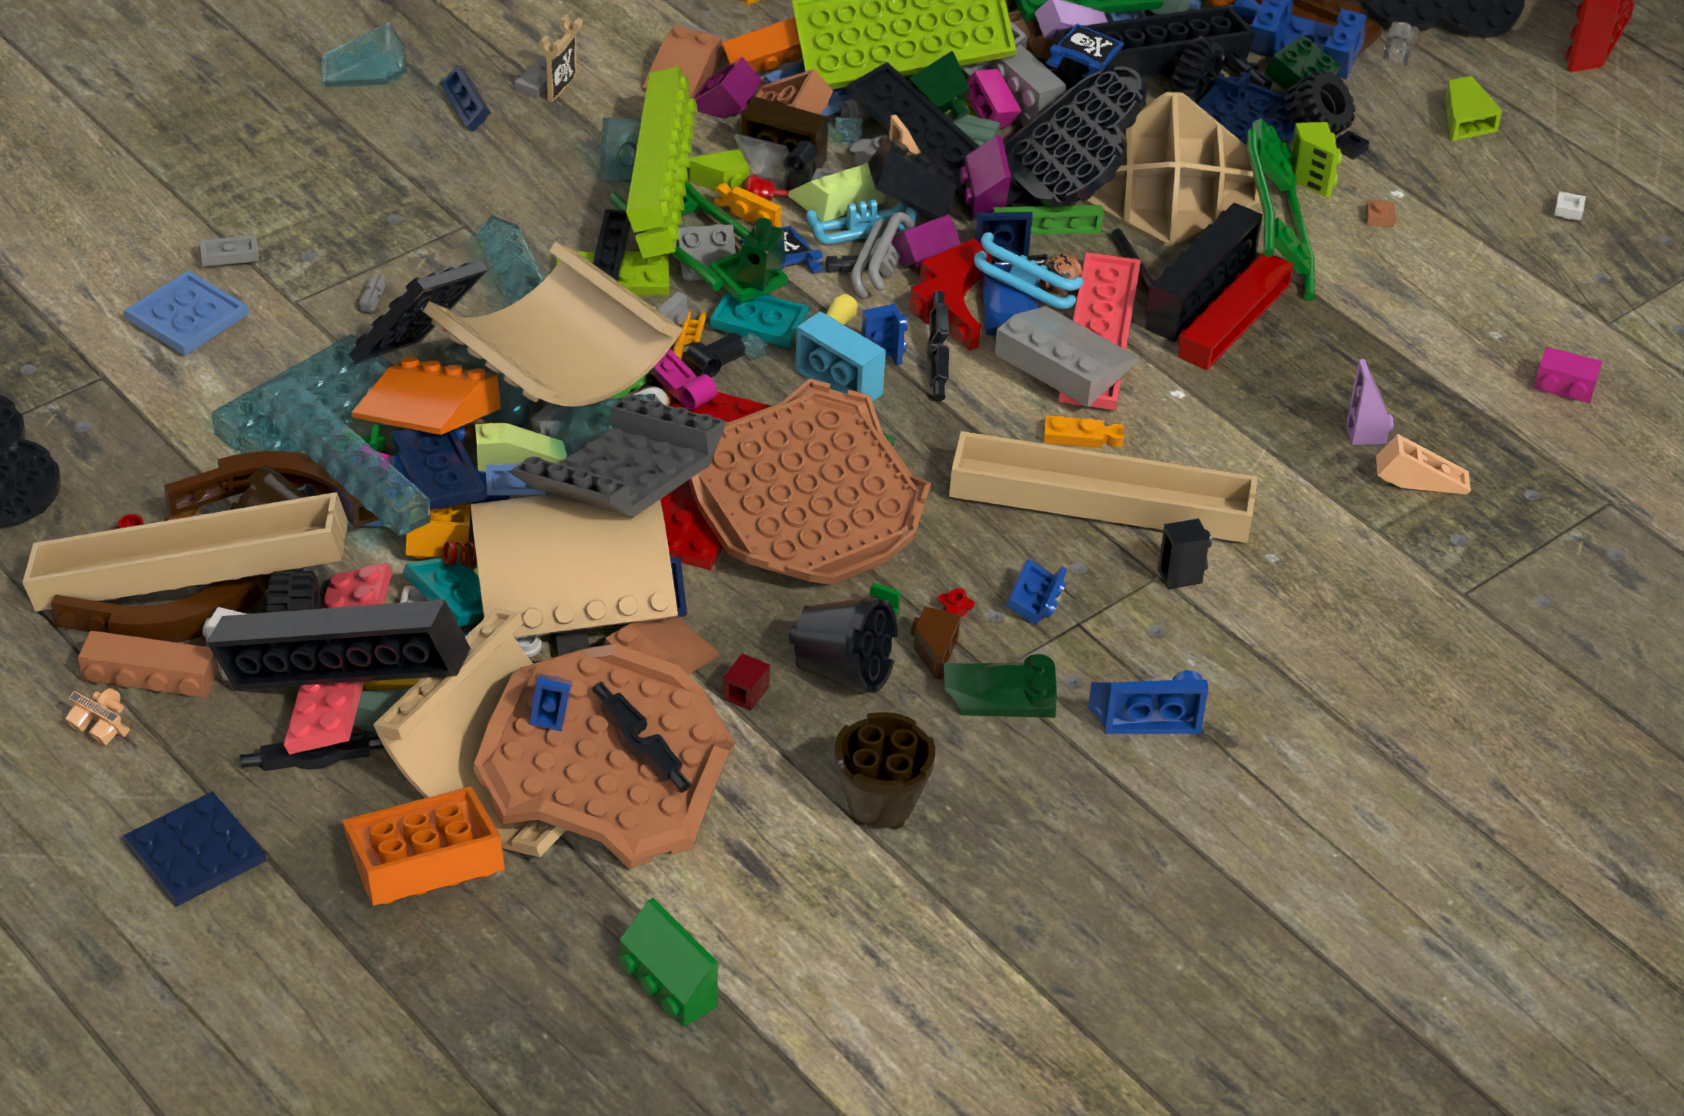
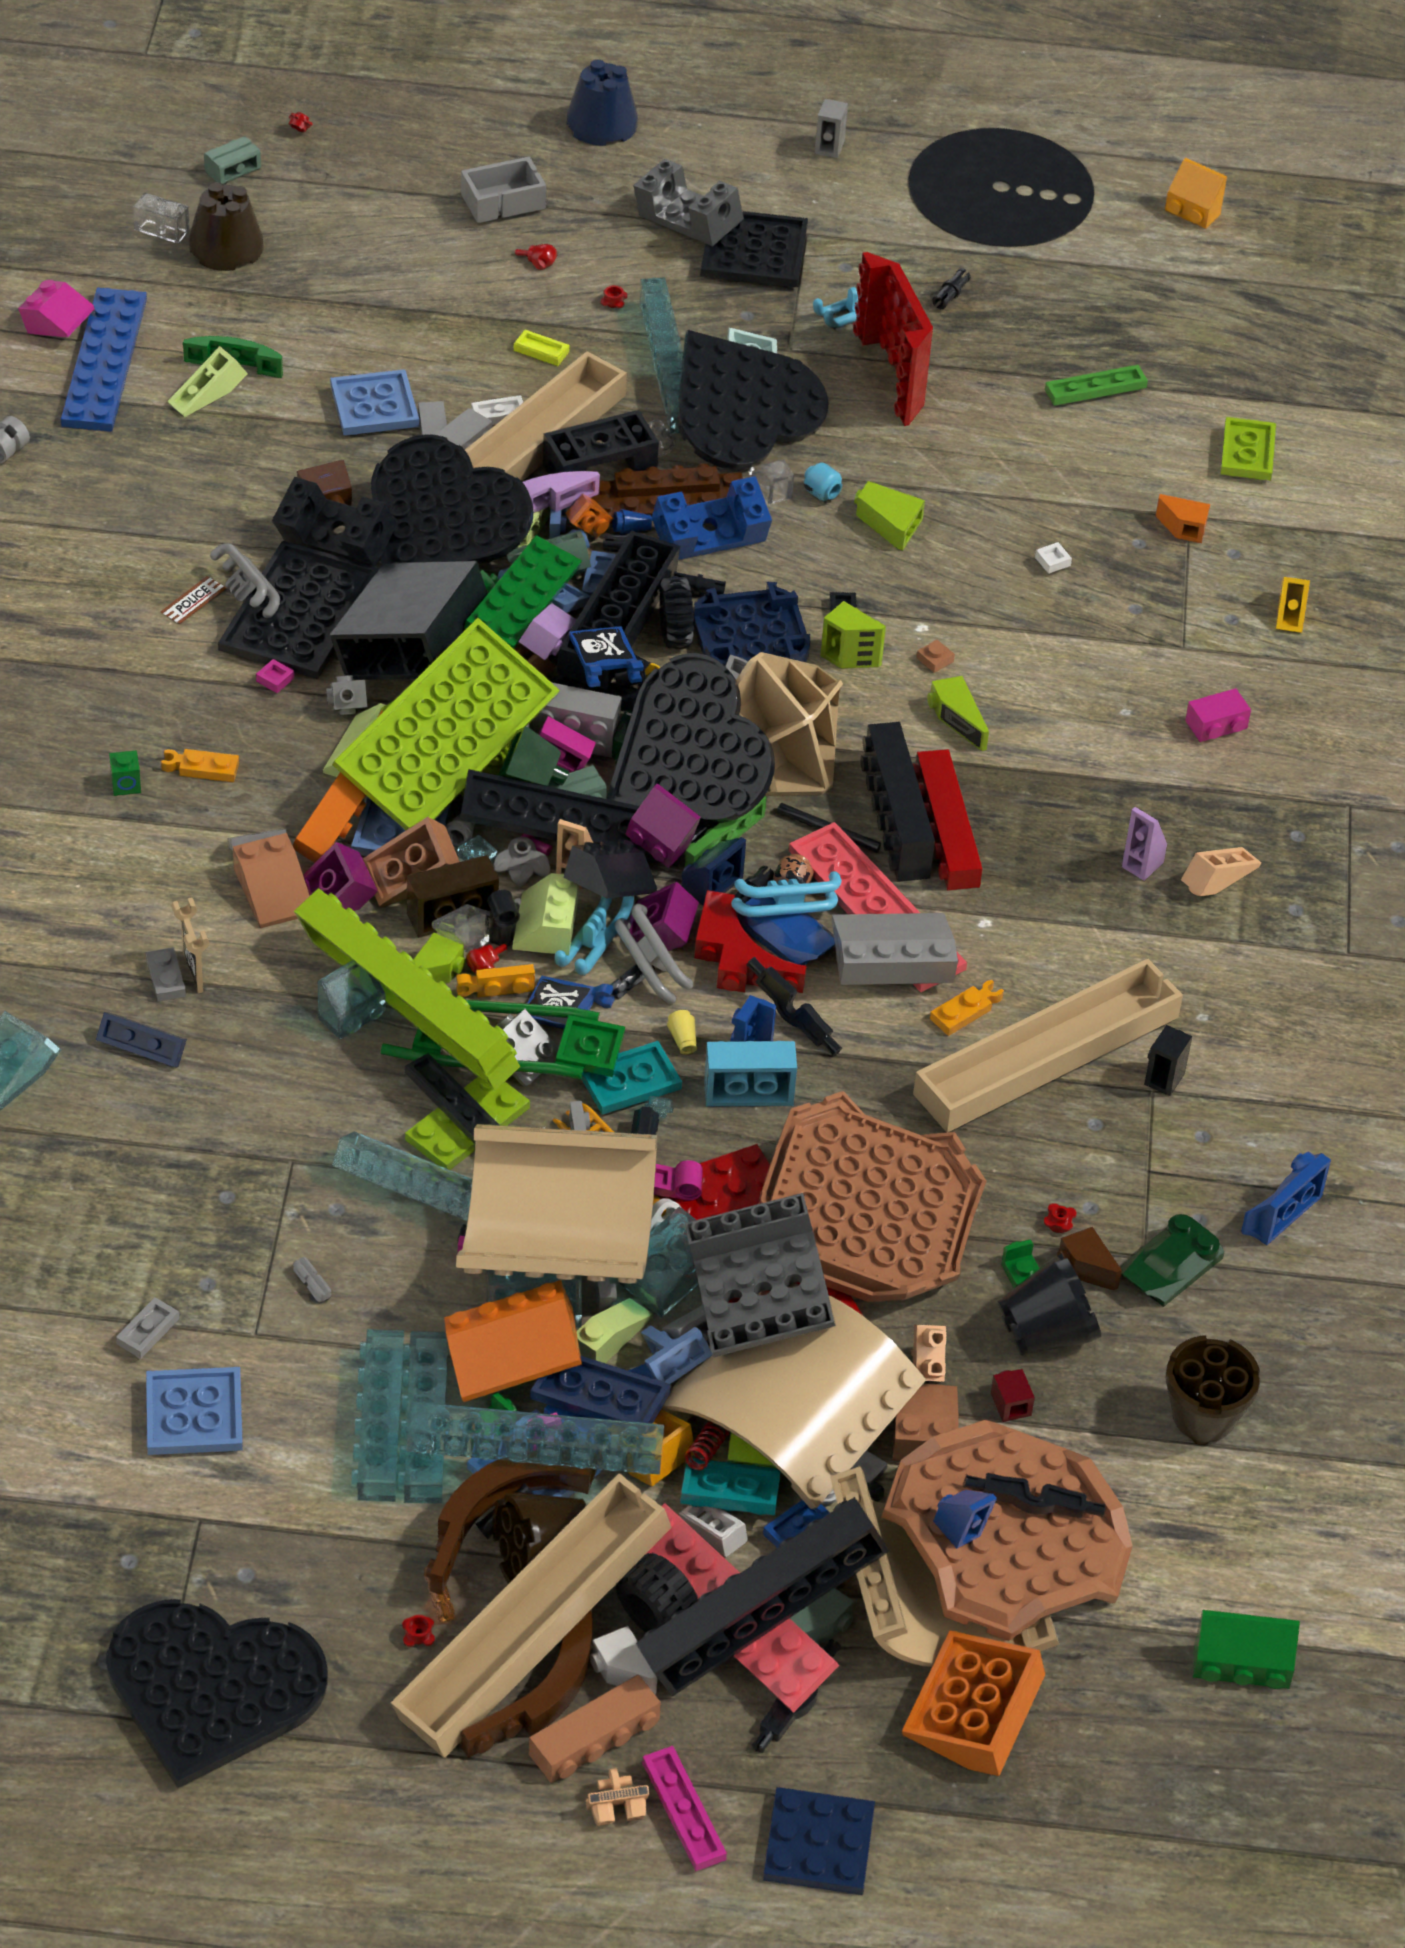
camera: 45 degrees left, 5 degrees up
(133, 756) = (684, 1808): none -> dark pink plate
(406, 321) = (433, 1269): black plate -> none
(718, 610) = (929, 1351): none -> light nougat hips
(762, 244) = (601, 1014): dark green torso -> none
(1035, 592) = (1105, 1166): blue bracket -> none
(1272, 156) = (936, 736): green plate -> none
(1297, 61) = (744, 557): dark green brick -> none
(1321, 99) = (804, 586): black tyre -> none
(1347, 248) = (958, 710): none -> lime slope
(1438, 62) = (823, 481): none -> medium azure head

